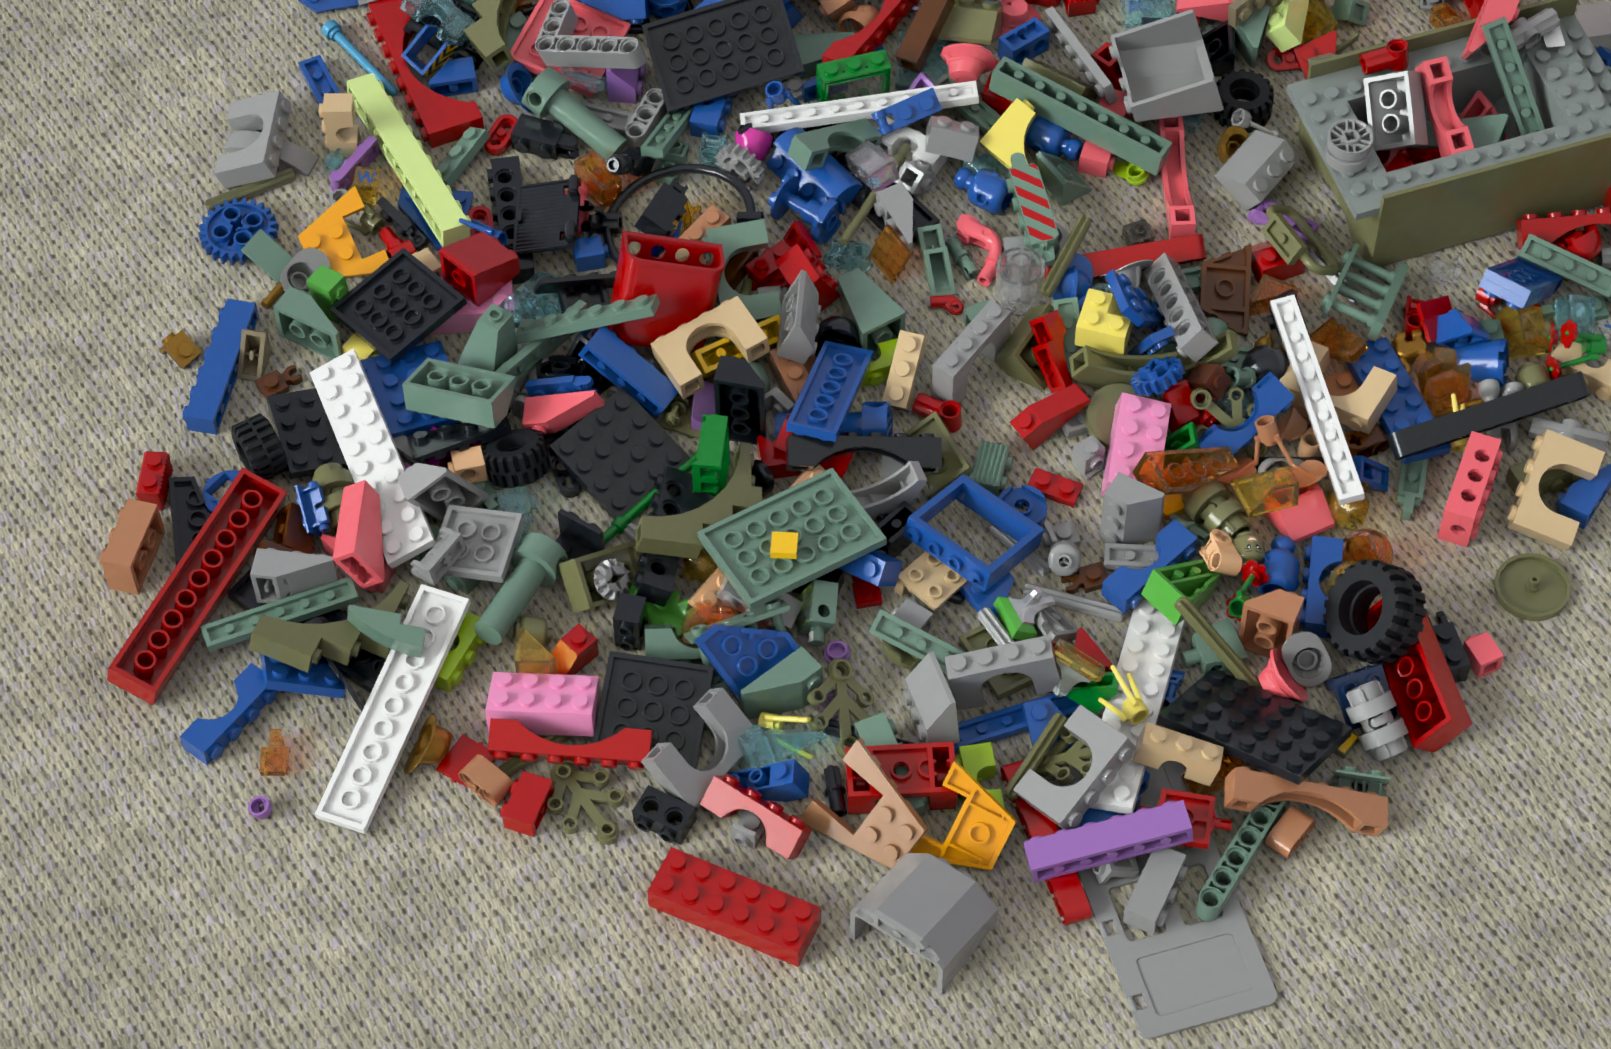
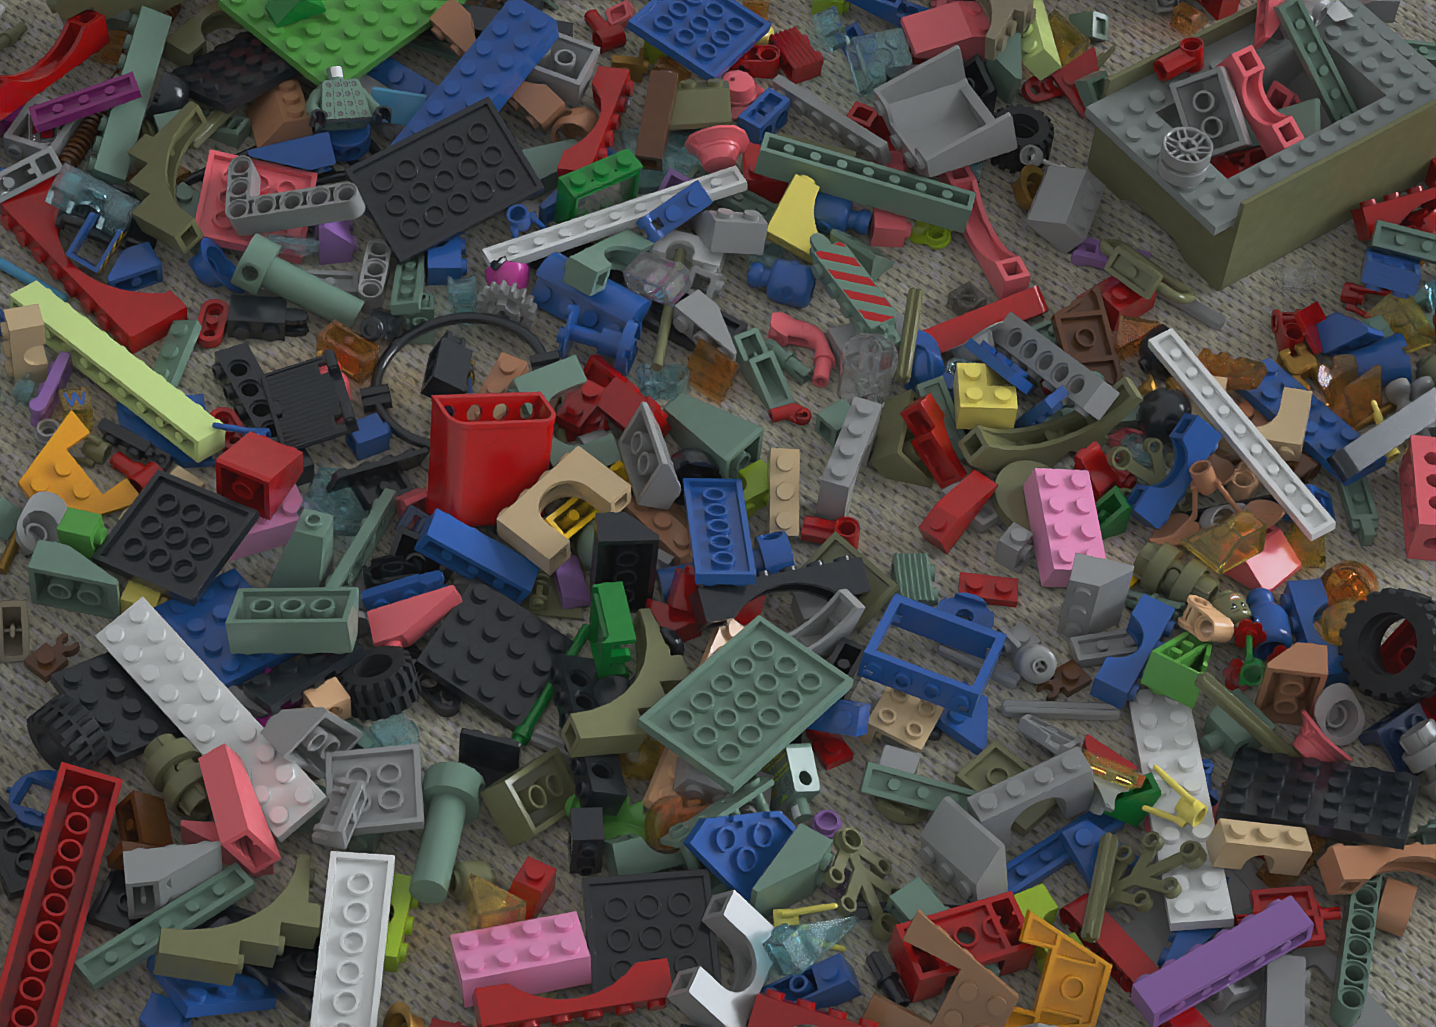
camera: 25 degrees left, 5 degrees down
(314, 519) = (168, 803): blue hinge -> none
(387, 629) = (315, 912): sand green slope -> none
(586, 319) = (415, 505): sand green plate -> none
(592, 225) = (362, 401): black piece -> none
(605, 571) = (540, 792): light grey gear -> none
(784, 545) = (745, 711): yellow tile -> none
(994, 626) = (995, 757): light grey axle -> none
(1019, 613) = (1016, 733): piece -> none
(1069, 803) = (1163, 931): light grey arch -> none
(1157, 376) = (1066, 443): blue gear -> none
(1184, 469) = (1135, 537): clear orange wedge -> none
(1210, 377) = (1119, 432): copper brick -> none
(1241, 377) = (1146, 427): sand green bush -> none
(1380, 306) = (1255, 309): sand green fence -> none

